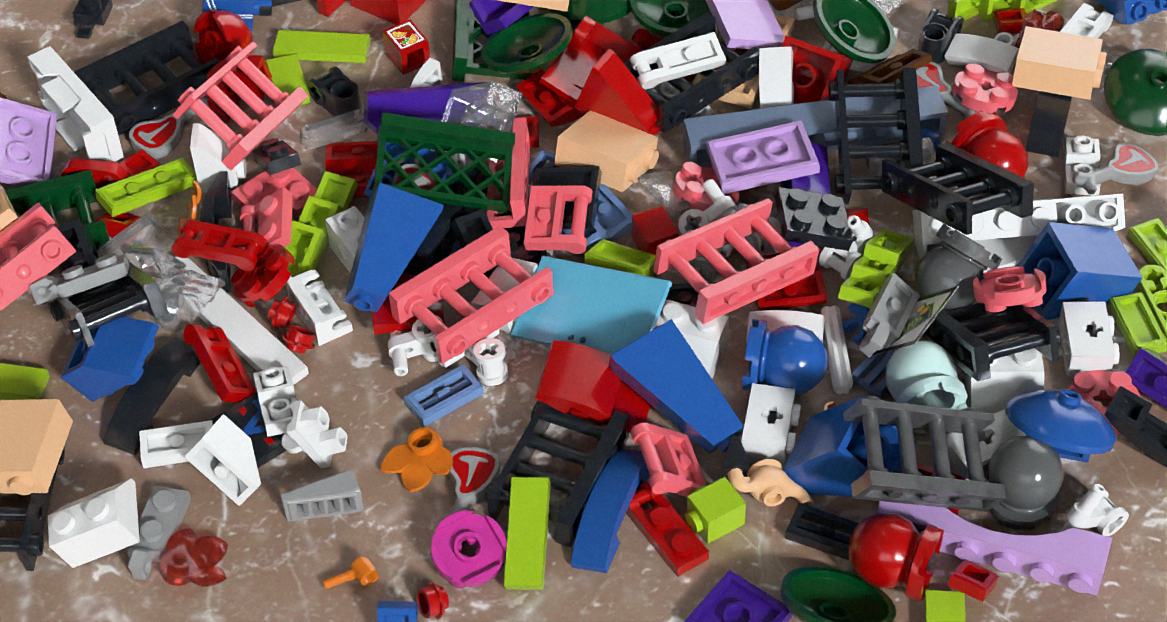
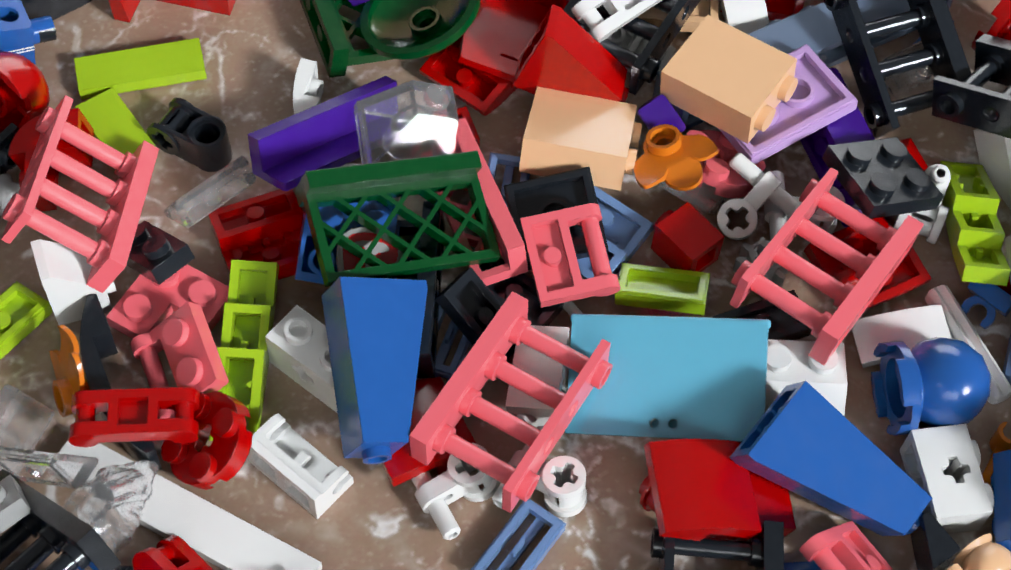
camera: 25 degrees left, 10 degrees up
(282, 313) = (254, 488): red plate -> none
(299, 339) = (293, 522): red plate -> none
(406, 46) = (256, 45): red brick -> none
(663, 174) = (673, 158): none -> orange plate
(670, 151) = (659, 112): none -> dark purple slope
(724, 127) = (729, 79): none -> light nougat brick

